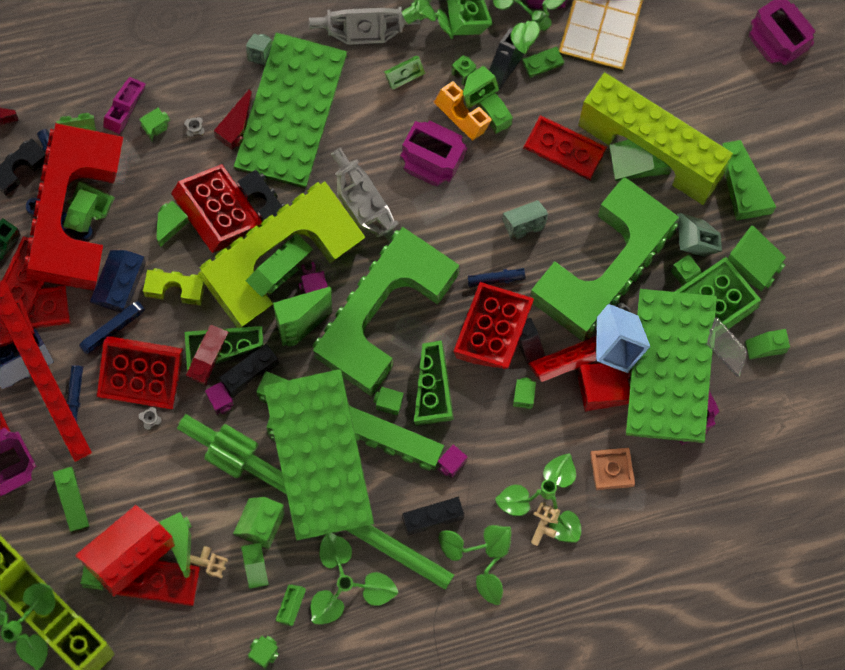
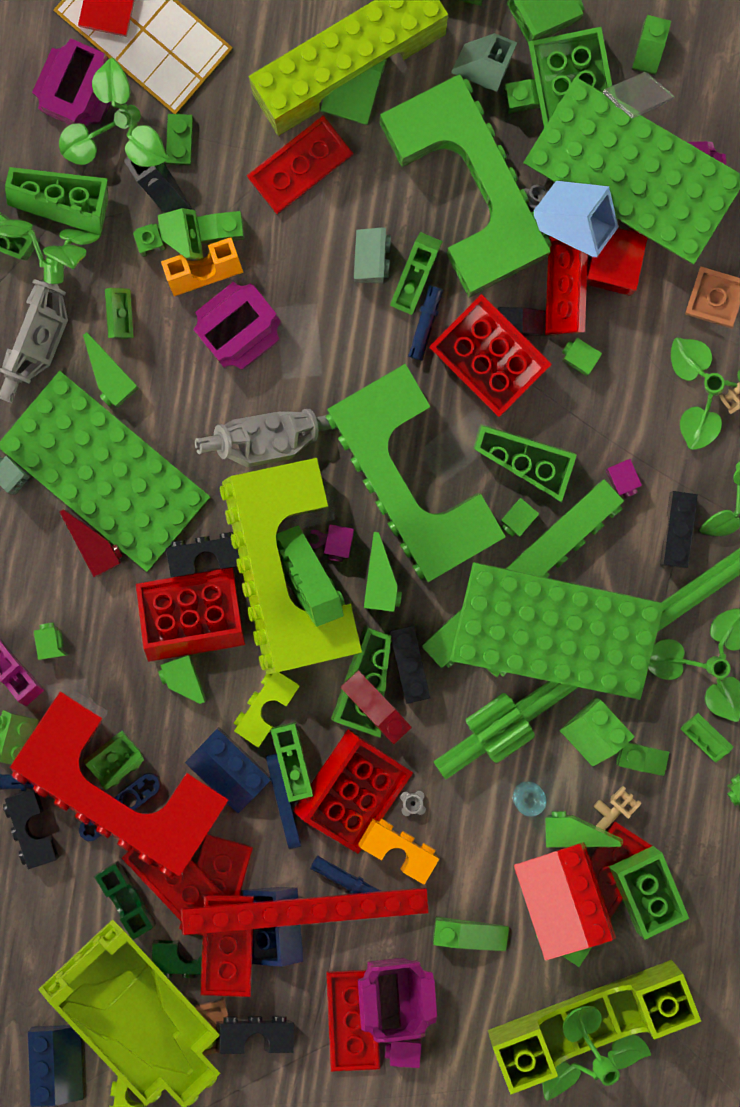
camera: 65 degrees left, 15 degrees up
(81, 211) = (128, 779): bright green slope -> none
(111, 438) = (381, 838): none -> light orange arch
(144, 317) = (292, 761): none -> bright green slope
(157, 610) = (649, 892): none -> bright green brick
(189, 486) = (536, 805): none -> clear light blue piece
(194, 122) = (67, 599): light grey plate -> none
(219, 398) = (428, 713): magenta brick -> none
(357, 84) = (110, 378): none -> bright green slope
(529, 254) = (416, 273): none -> bright green slope

